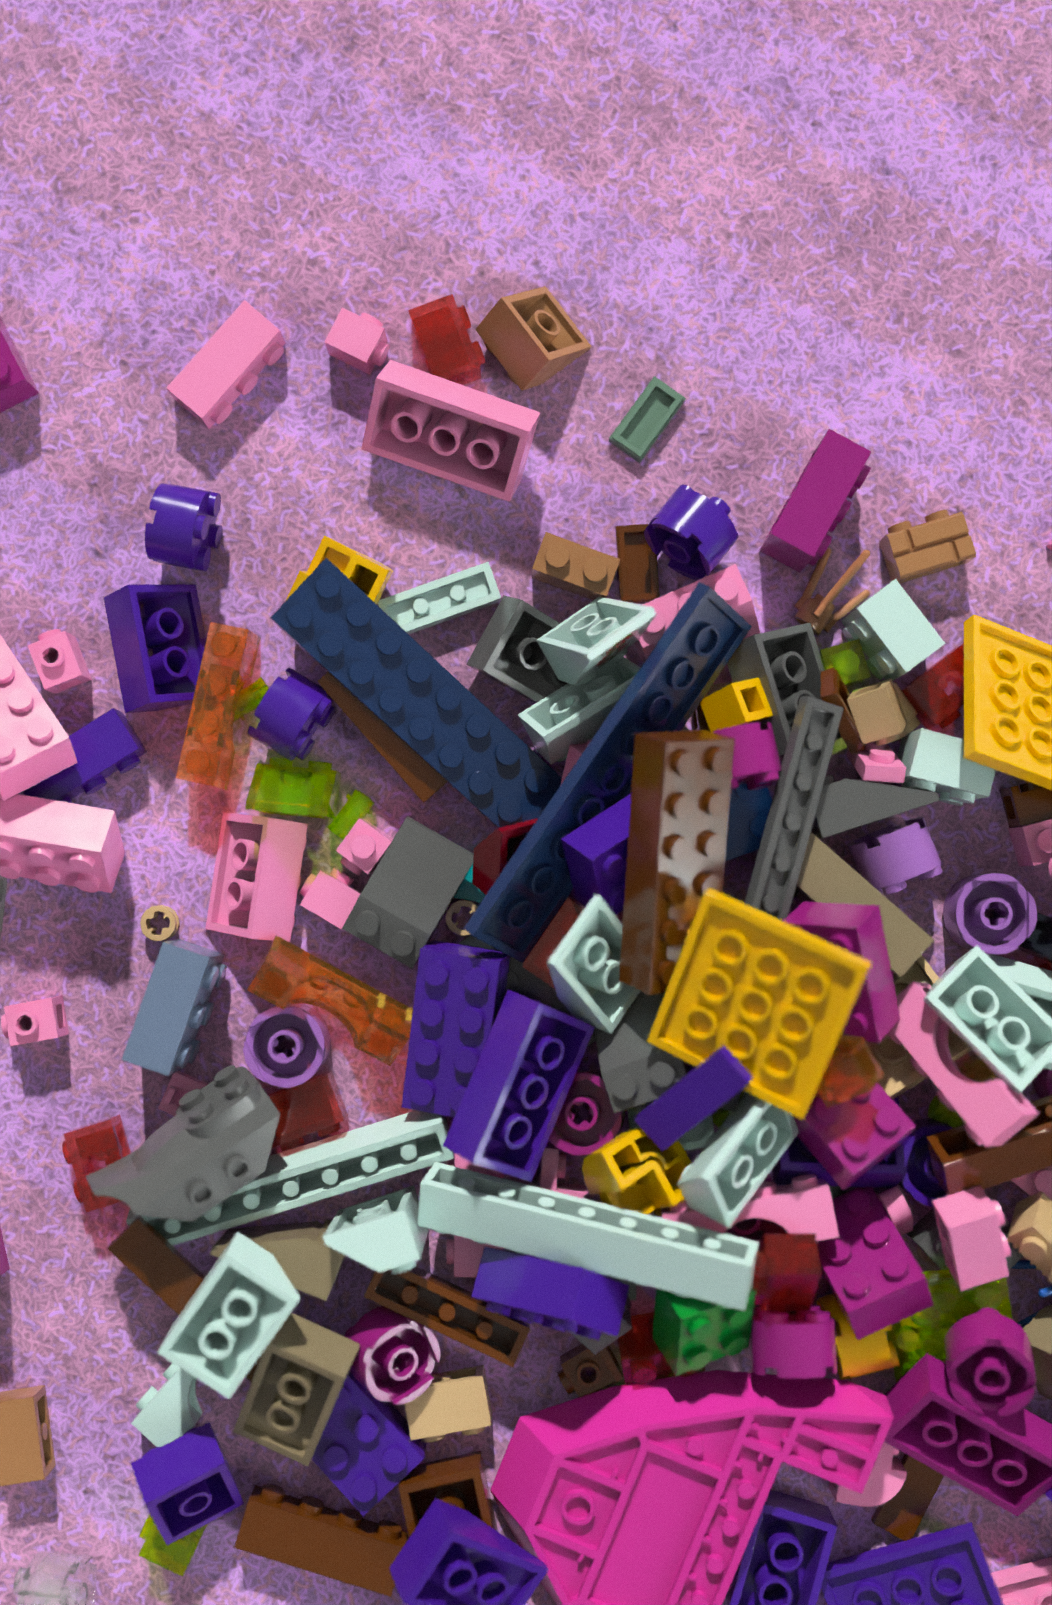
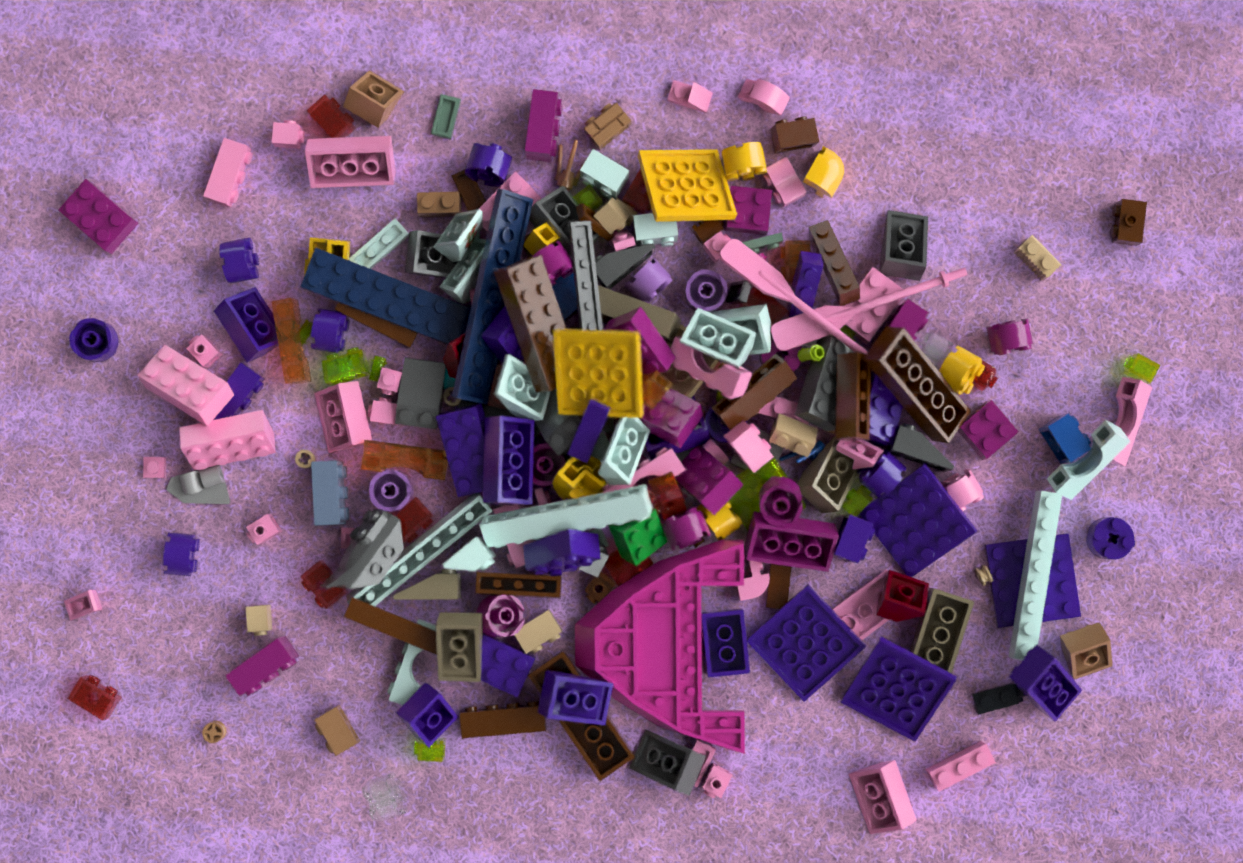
camera: 20 degrees left, 0 degrees up
(231, 1316) = (414, 620): light aqua slope -> none

